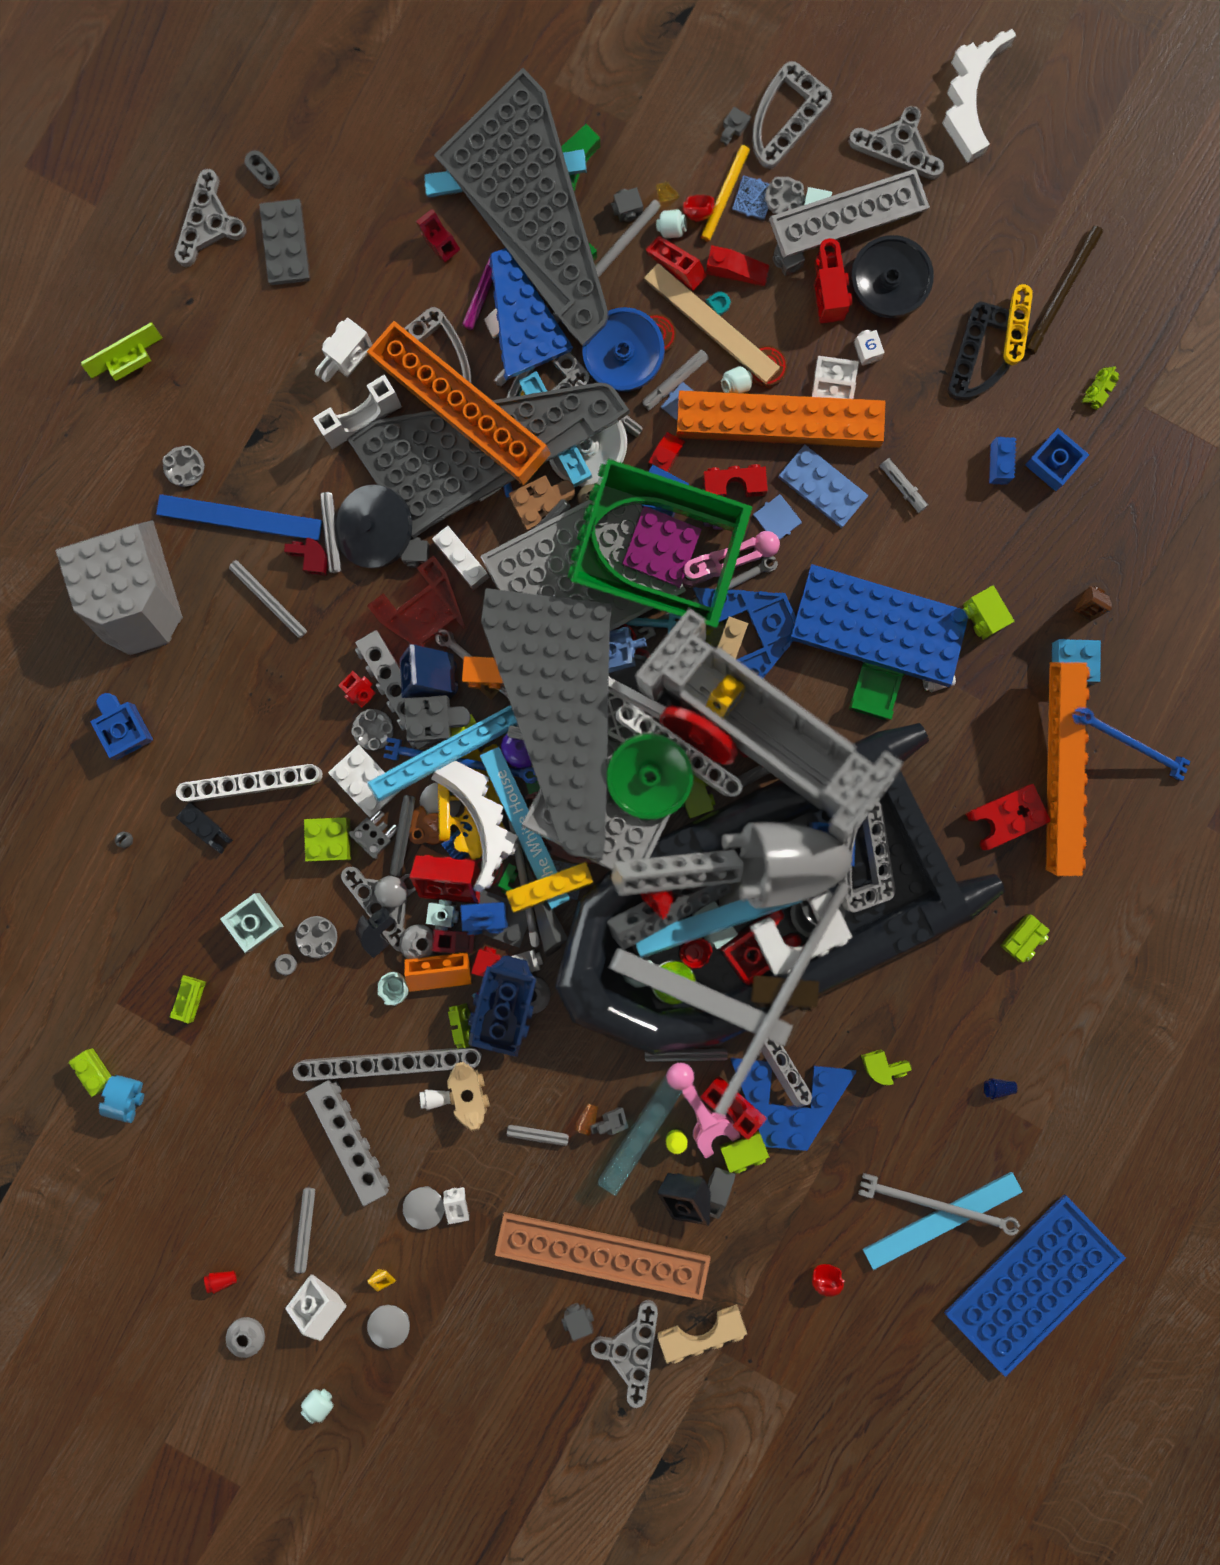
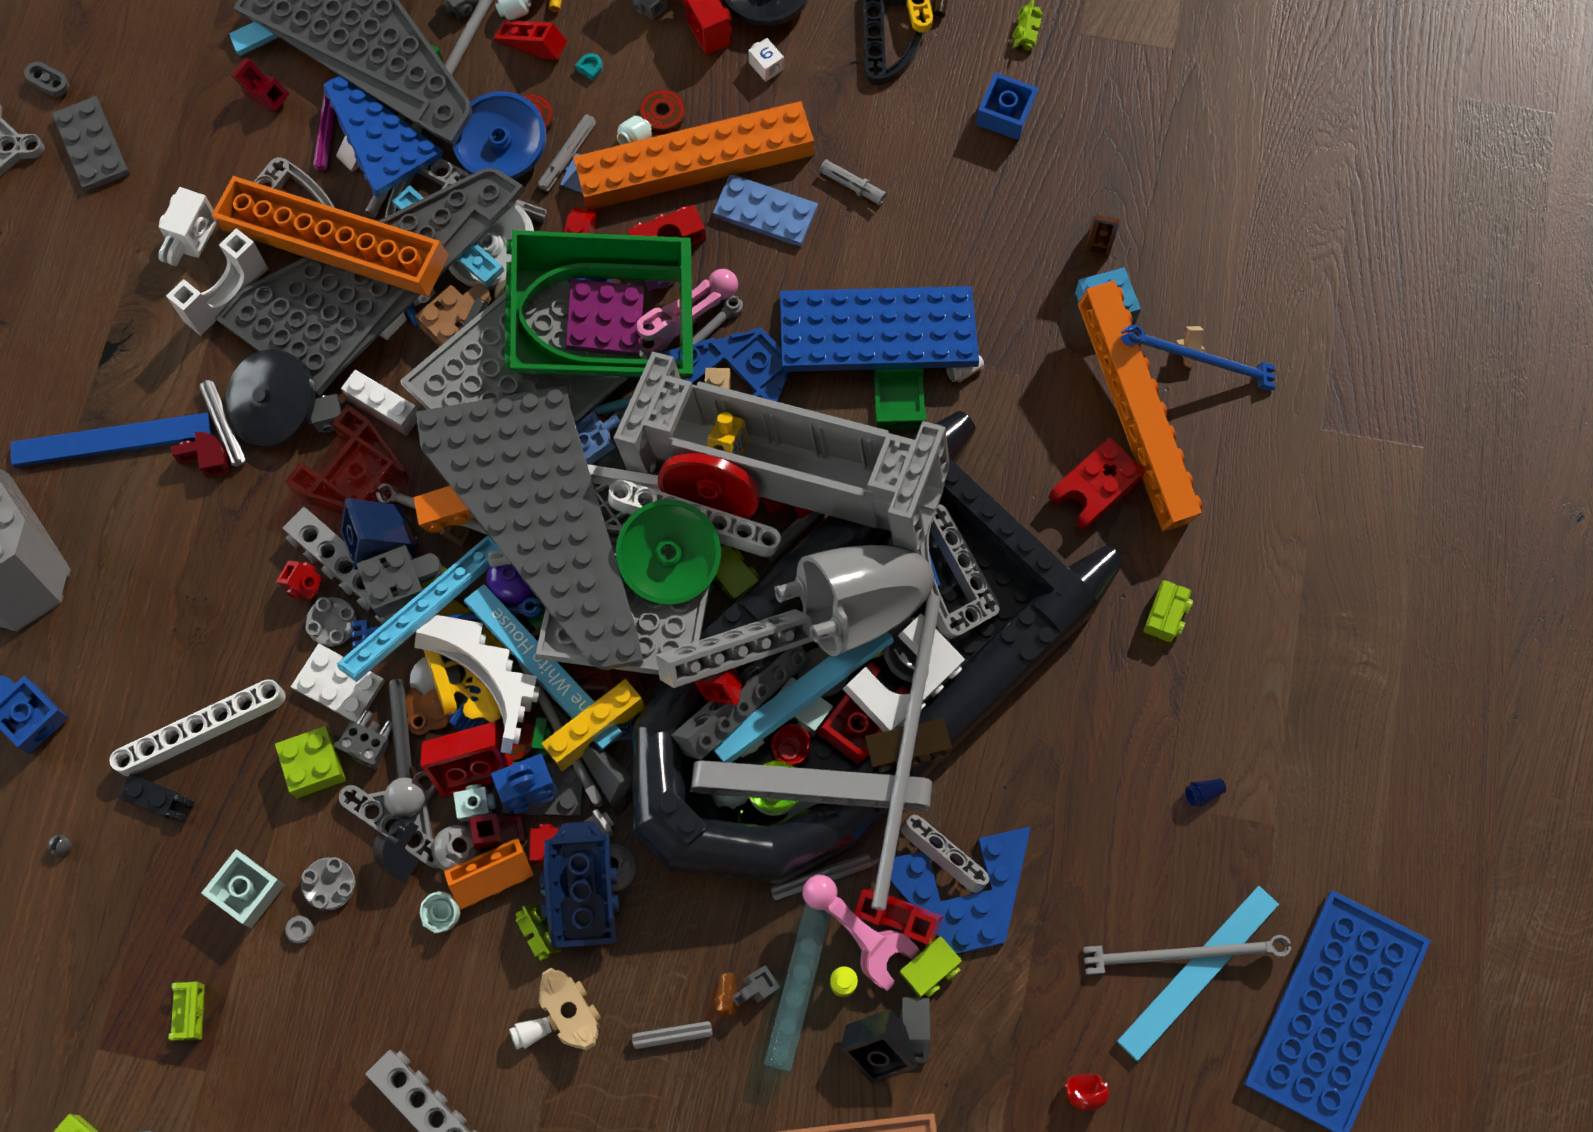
camera: 20 degrees left, 15 degrees down
(183, 466) = (31, 404): light grey dish -> none
(267, 599) = (167, 517): light grey axle -> none
(376, 1060) = (445, 1007): light grey beam -> none
(712, 323) = (588, 86): tan tile -> none
(736, 266) = (593, 23): red slope -> none
(777, 517) = (726, 254): medium blue piece -> none
(835, 378) = (739, 97): white slope -> none
(879, 1070) = (1056, 816): lime brick -> none
(987, 612) = (991, 277): lime brick -> none
(1002, 460) = (949, 125): blue brick -> none
(1130, 722) = (1193, 340): none -> tan piece

